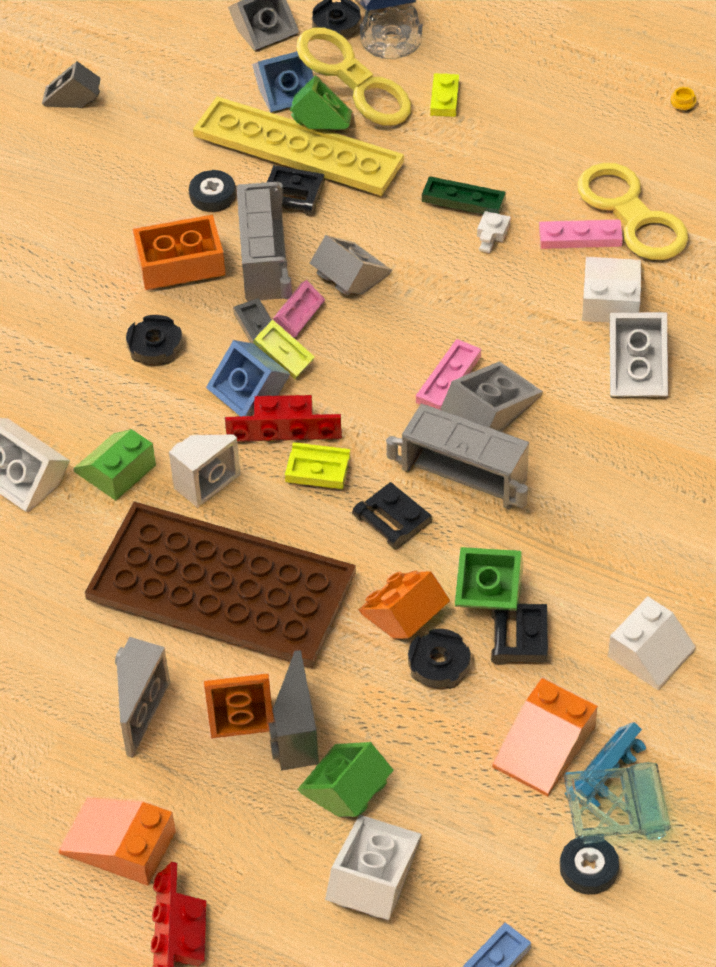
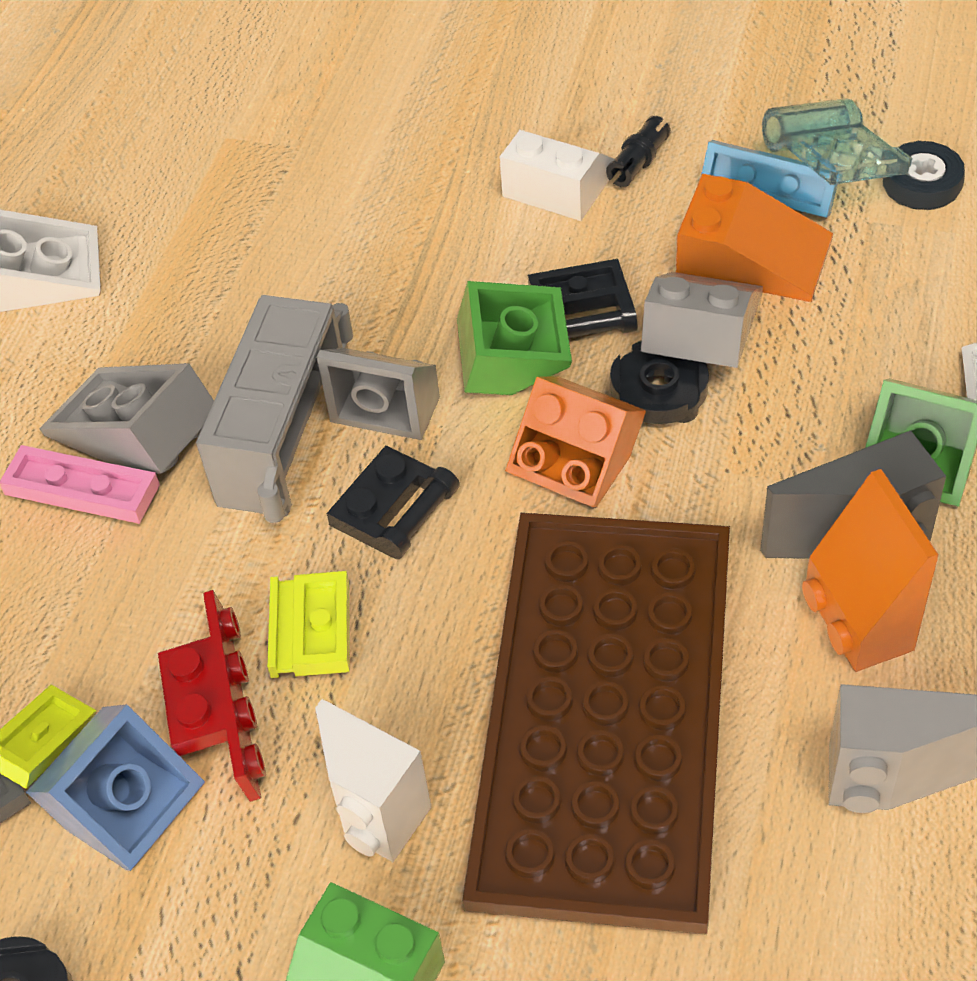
camera: 100 degrees left, 0 degrees up
(469, 509) = (378, 391): none -> light grey slope
(481, 684) = (699, 318): none -> light grey slope
(658, 696) = (638, 151): none -> black pin

